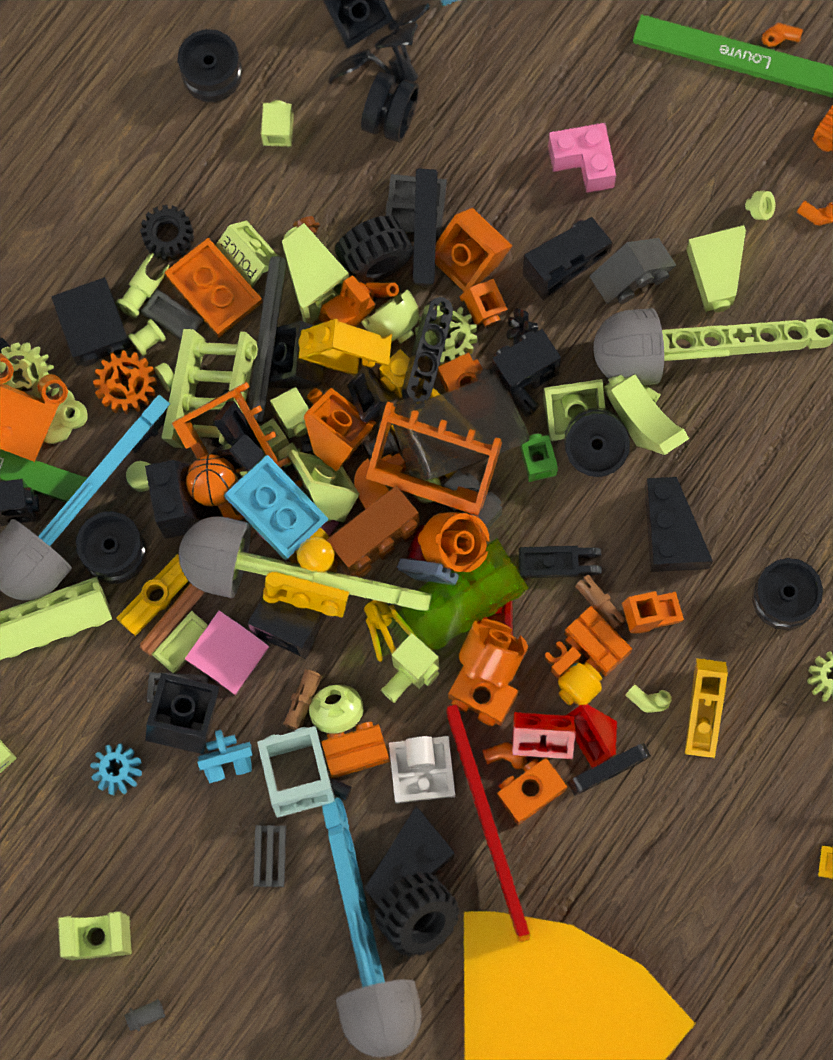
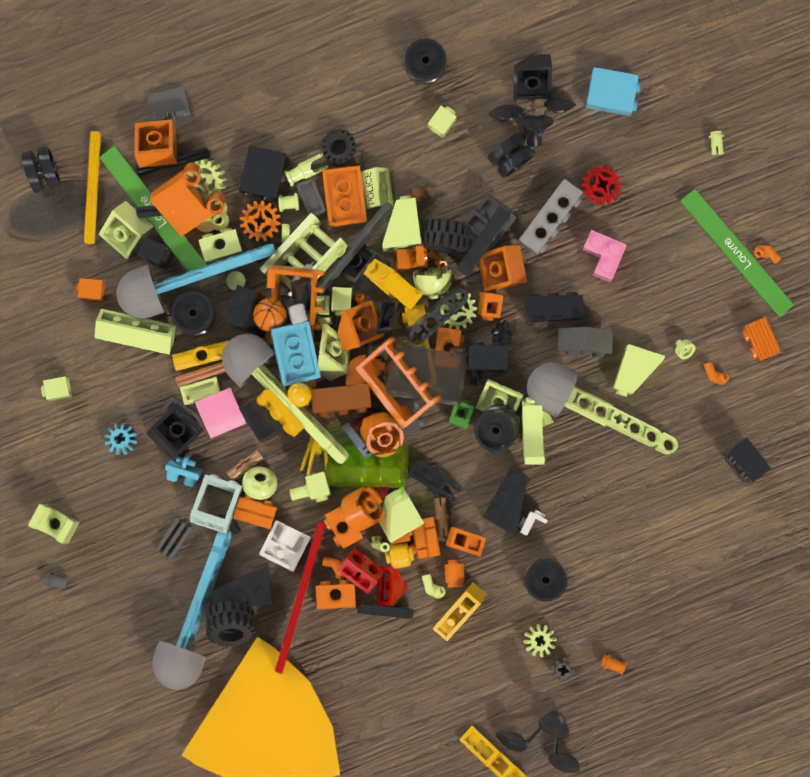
camera: 30 degrees right, 10 degrees up
(97, 426) = (231, 248): none -> yellowish green brick
(489, 111) = (564, 191): none -> light grey brick
(524, 75) = (612, 180): none -> red gear
(542, 690) = (377, 544): none -> yellowish green arm
(547, 630) = (399, 515): none -> yellowish green slope
(666, 663) = (454, 573): none -> orange brick
(714, 538) = (526, 523): none -> white bracket

